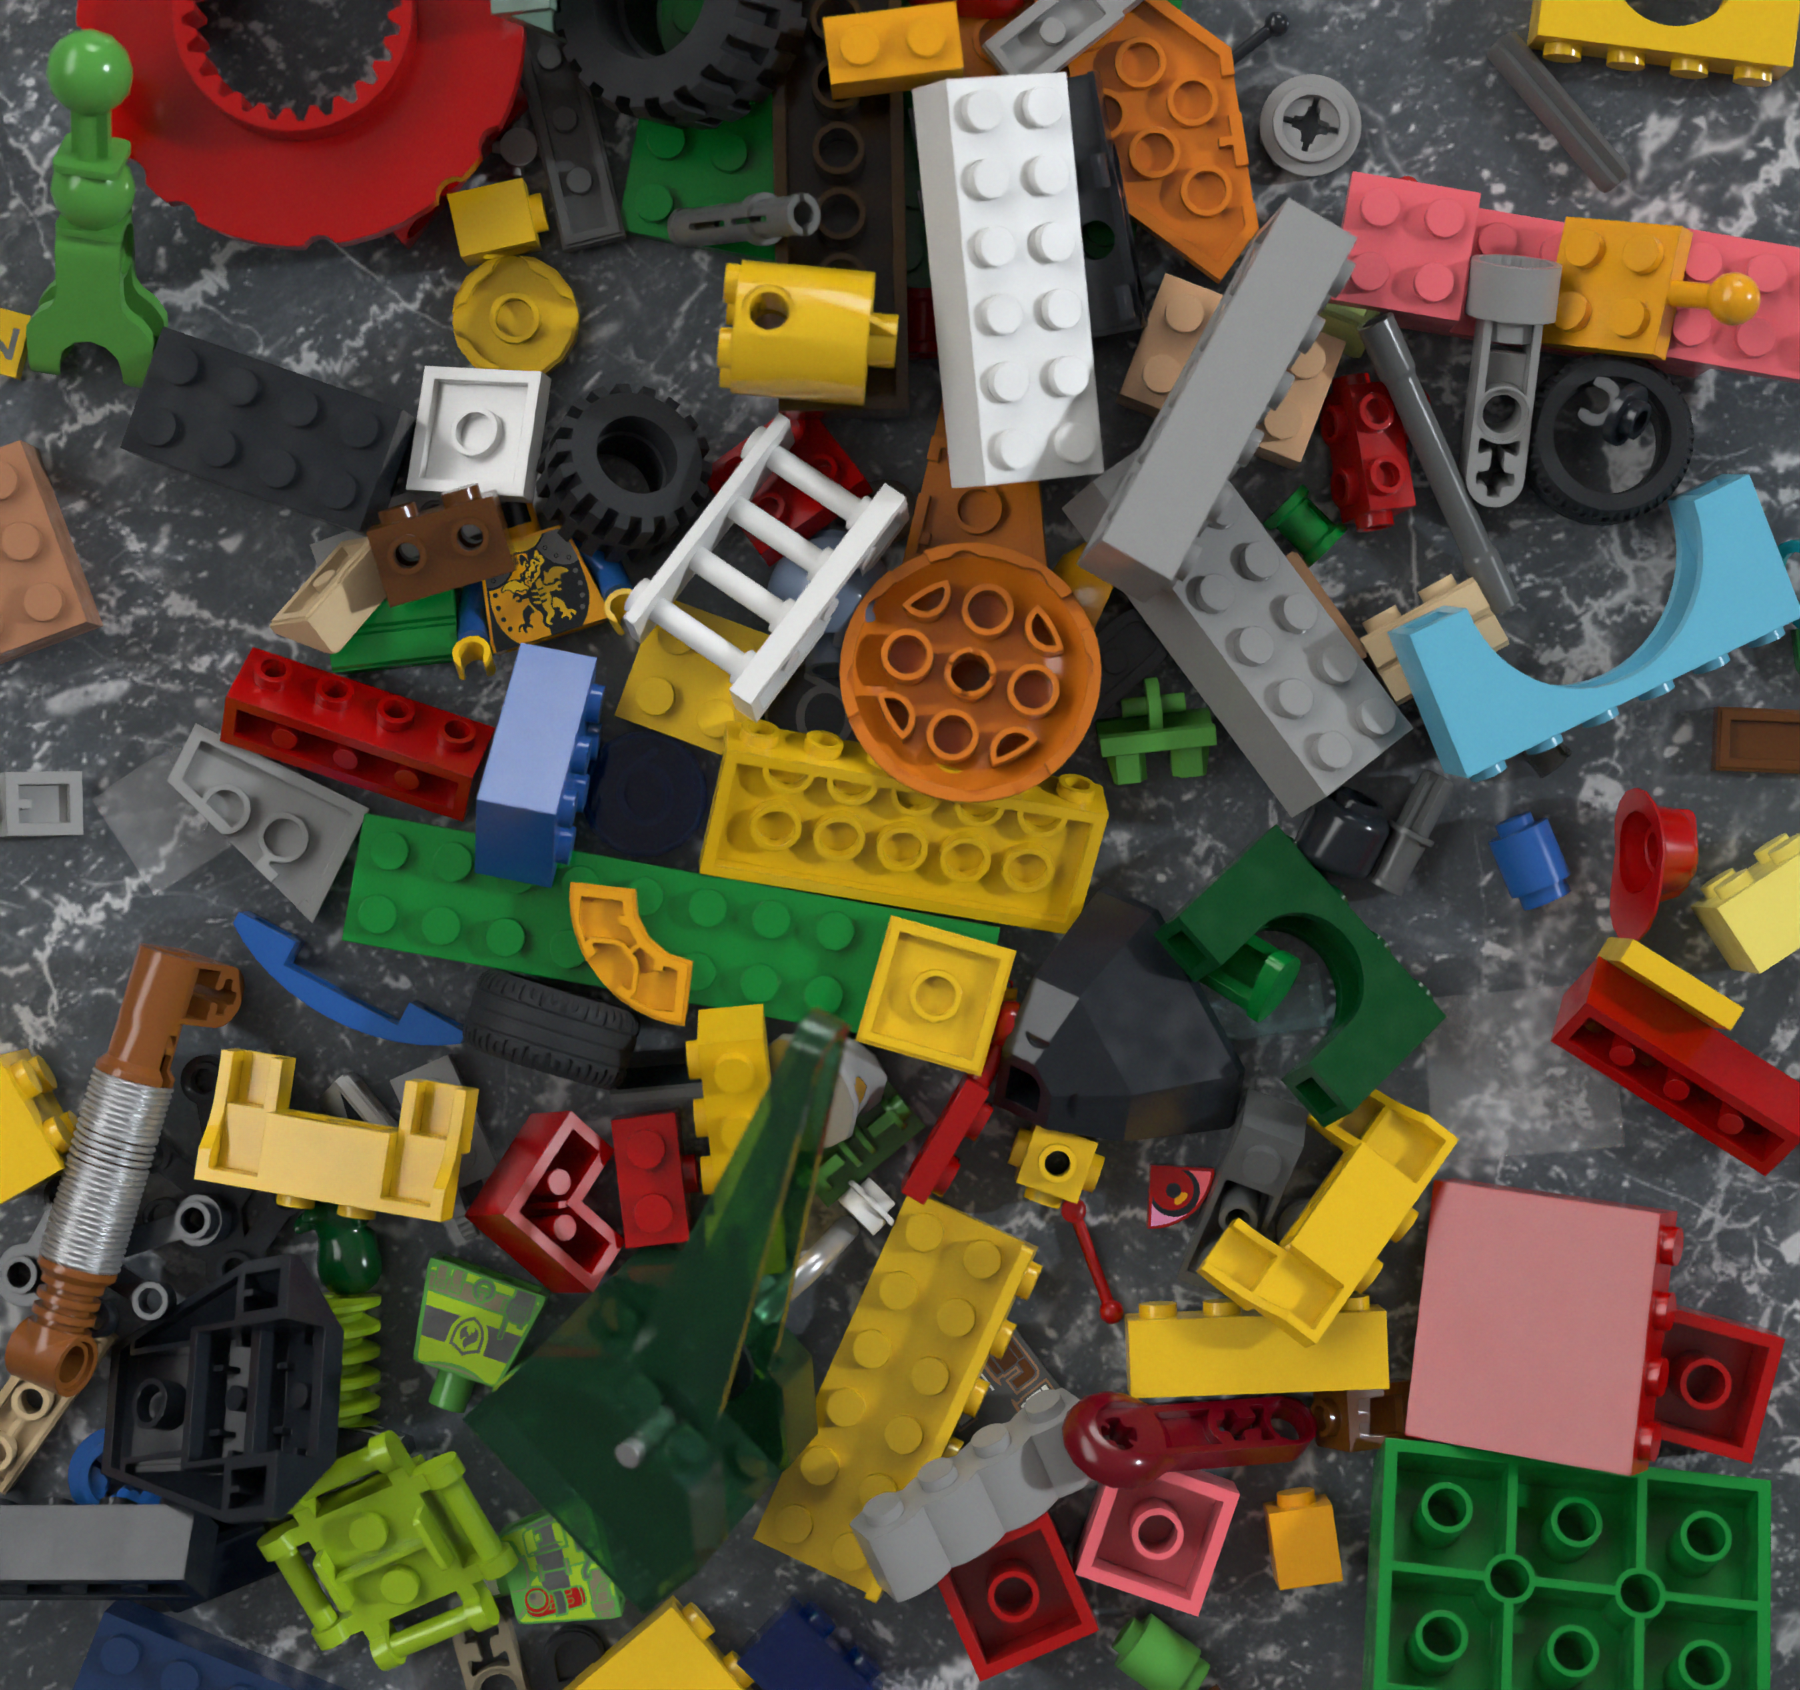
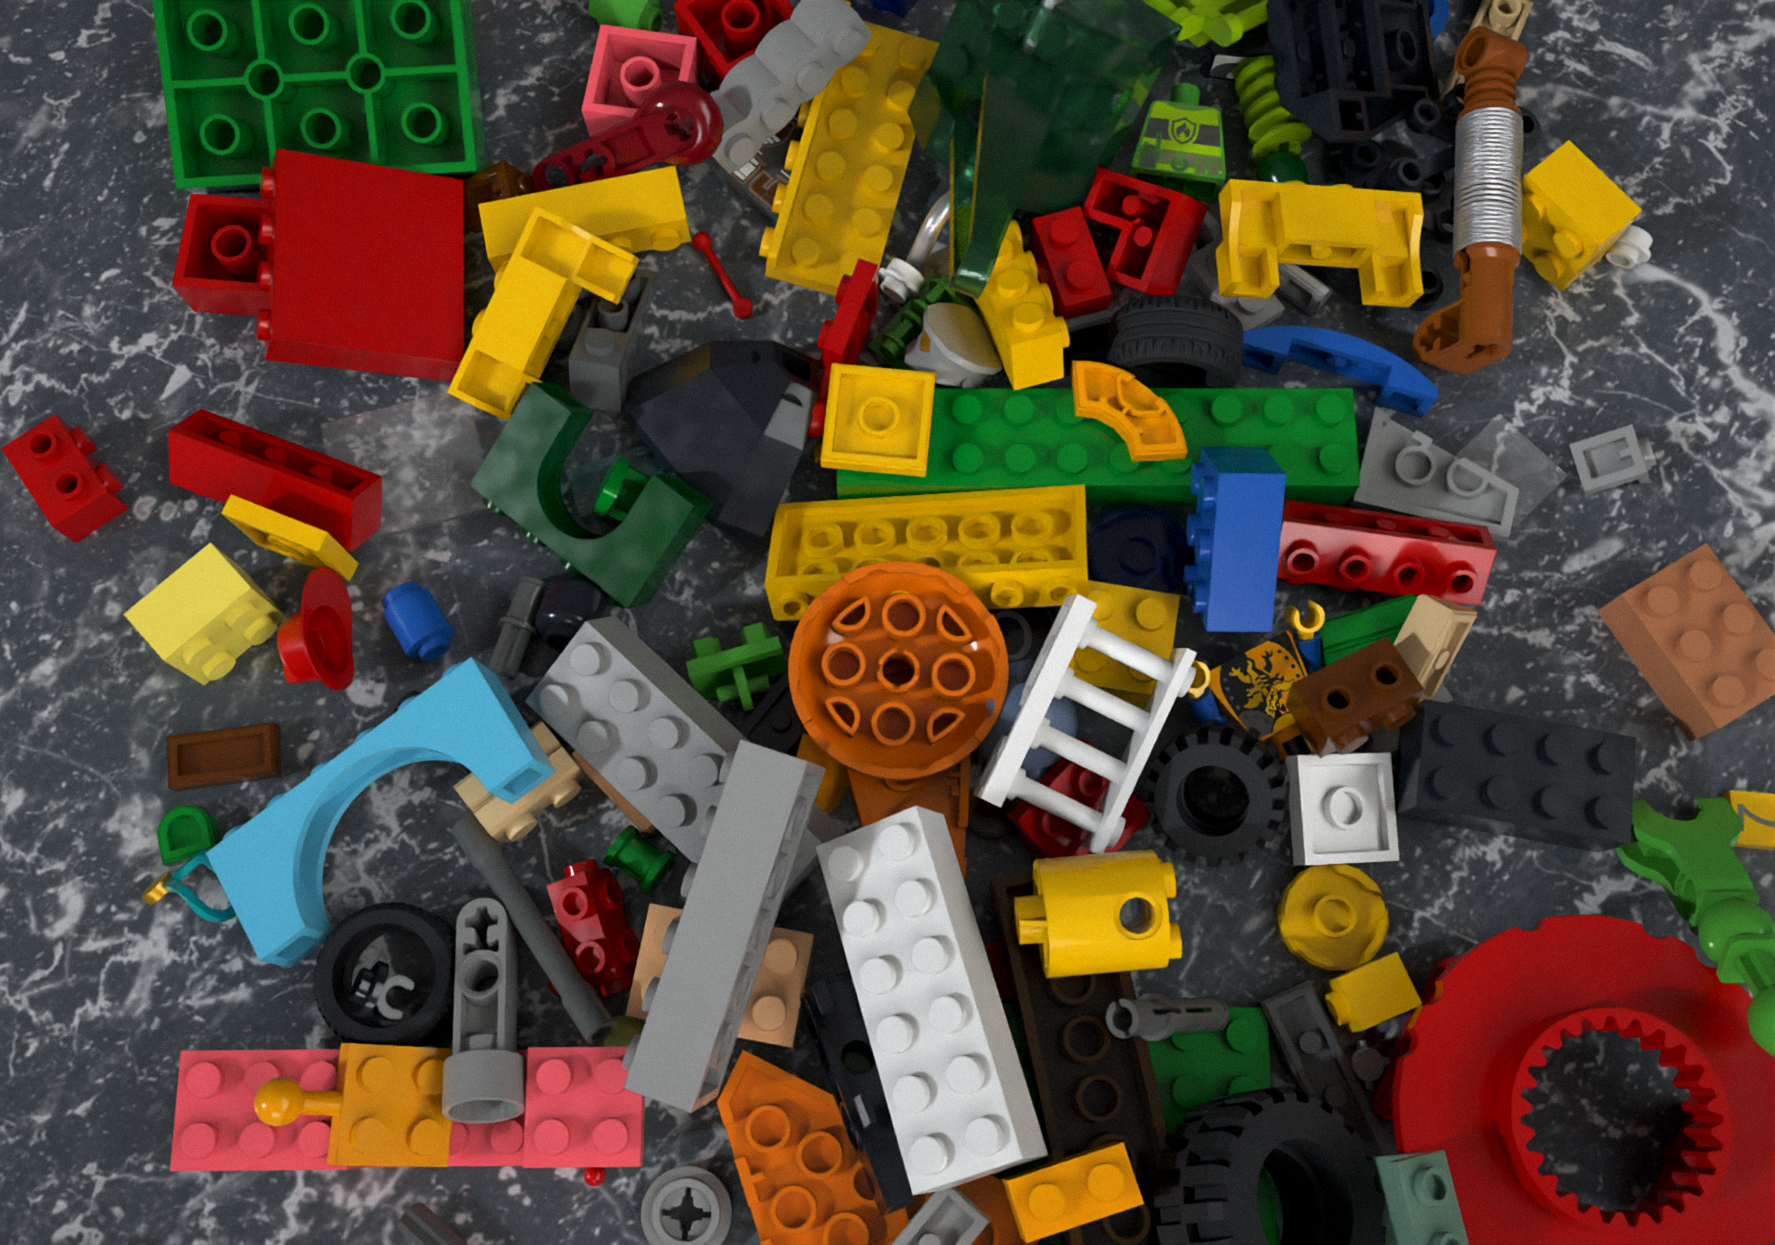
camera: 170 degrees right, 15 degrees down
(1048, 1189) = (762, 318): yellow brick -> none
(1175, 1192) = (665, 332): tile -> none
(1302, 1539) = (531, 104): light orange brick -> none

